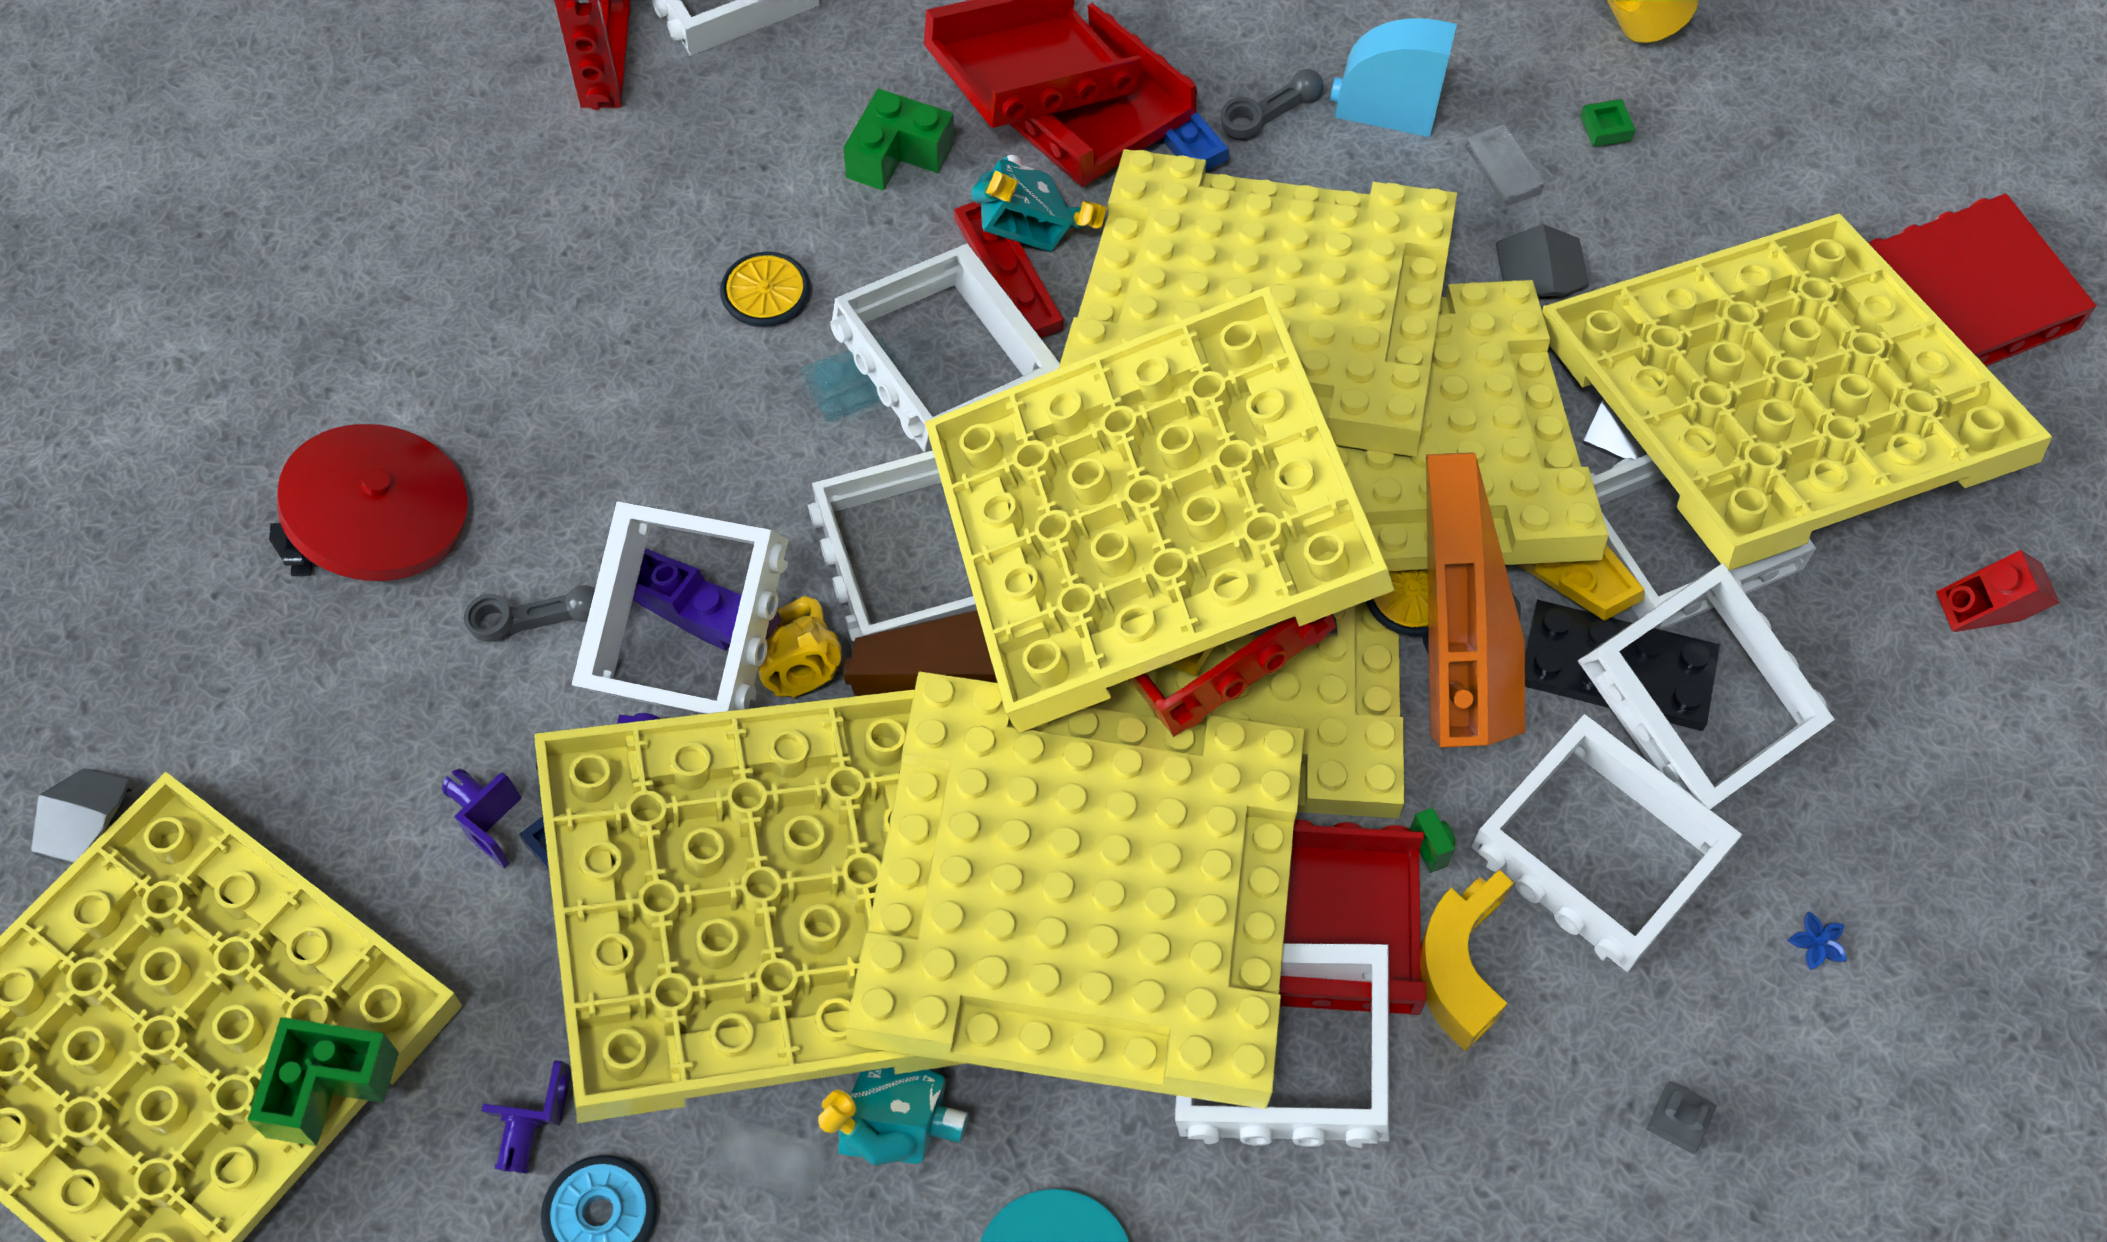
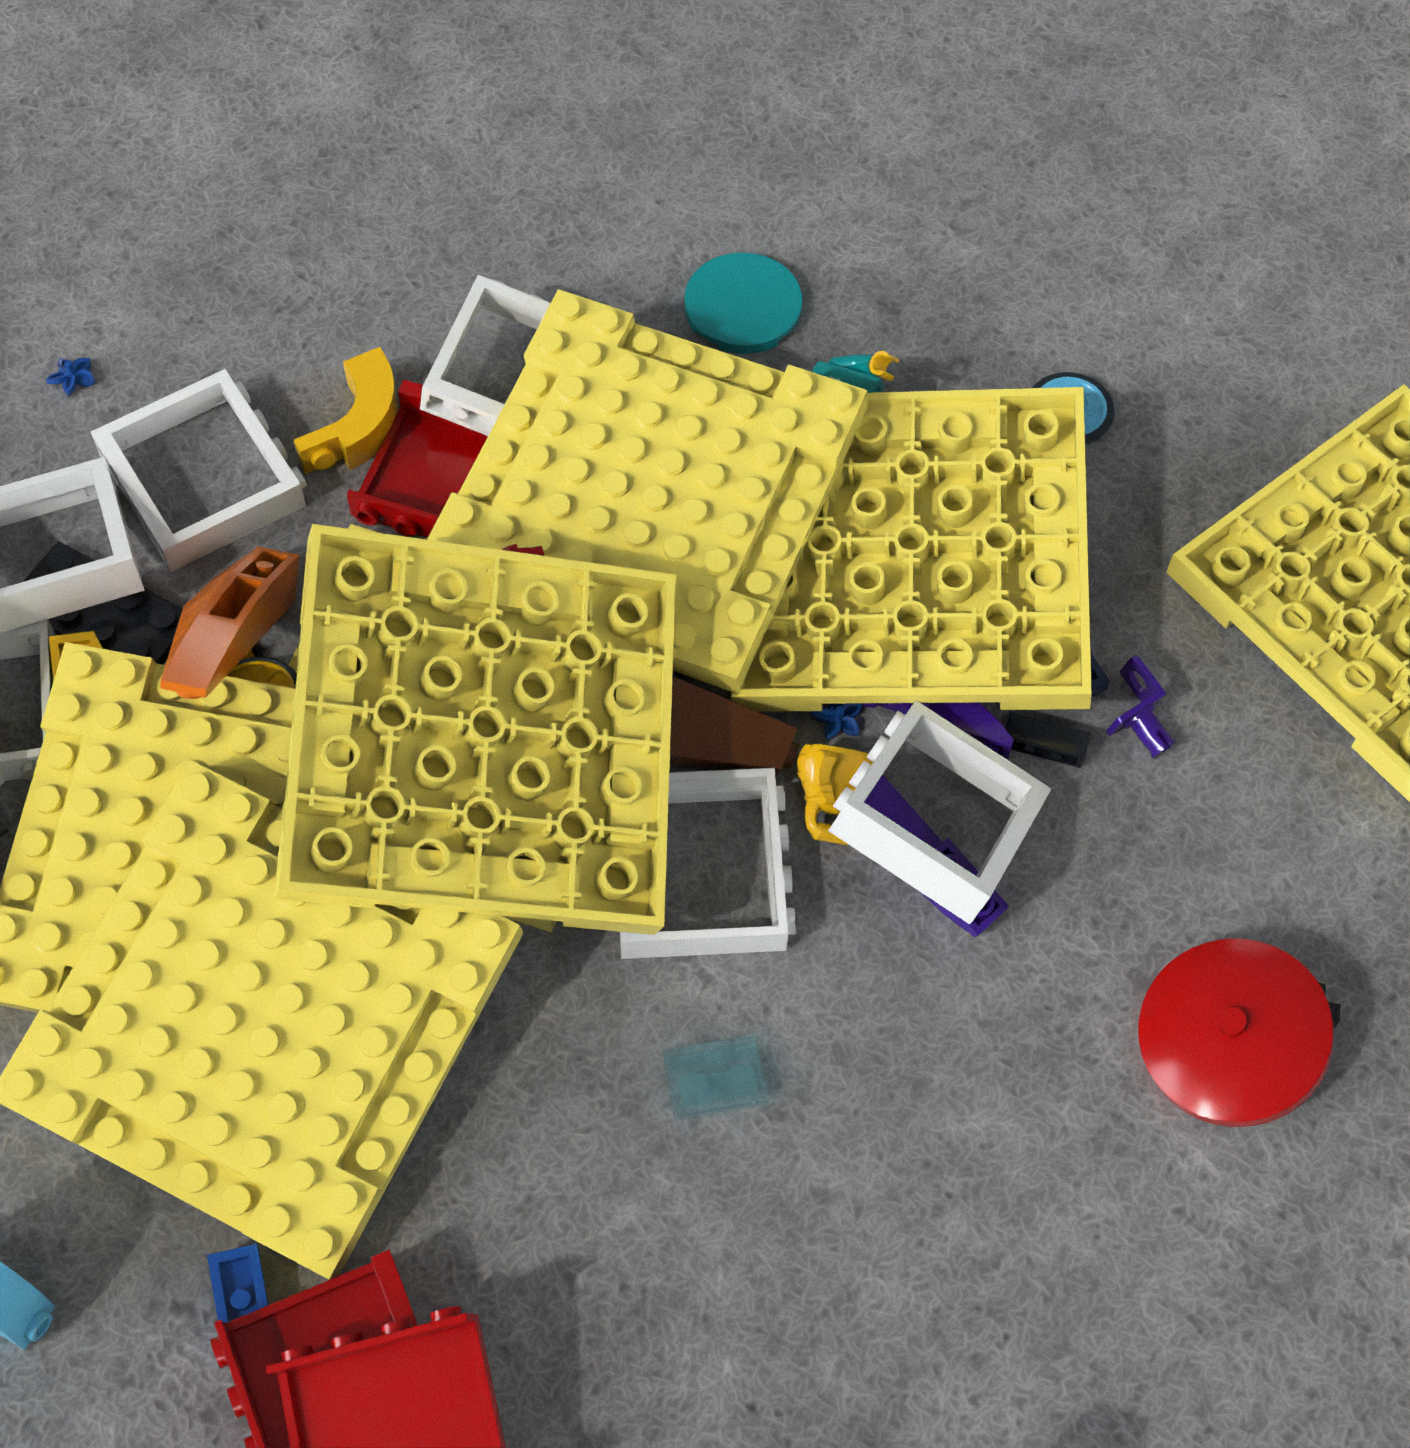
camera: 165 degrees left, 0 degrees up
(309, 1067) = (1279, 496): green brick -> none
(522, 1123) = (1123, 471): dark purple bracket -> none
(533, 615) = (1034, 887): dark grey piece -> none
(765, 289) = (786, 1220): yellow wheel -> none
(897, 131) = (593, 1392): green brick -> none
(983, 294) = (585, 988): white window -> none
(1011, 270) = (512, 1172): red plate -> none
(1028, 206) = (466, 1228): teal torso -> none
(1304, 87) = (72, 1345): dark grey piece -> none
(1438, 839) = (336, 502): green plate -> none
(1681, 1117) = (247, 288): dark grey tile -> none

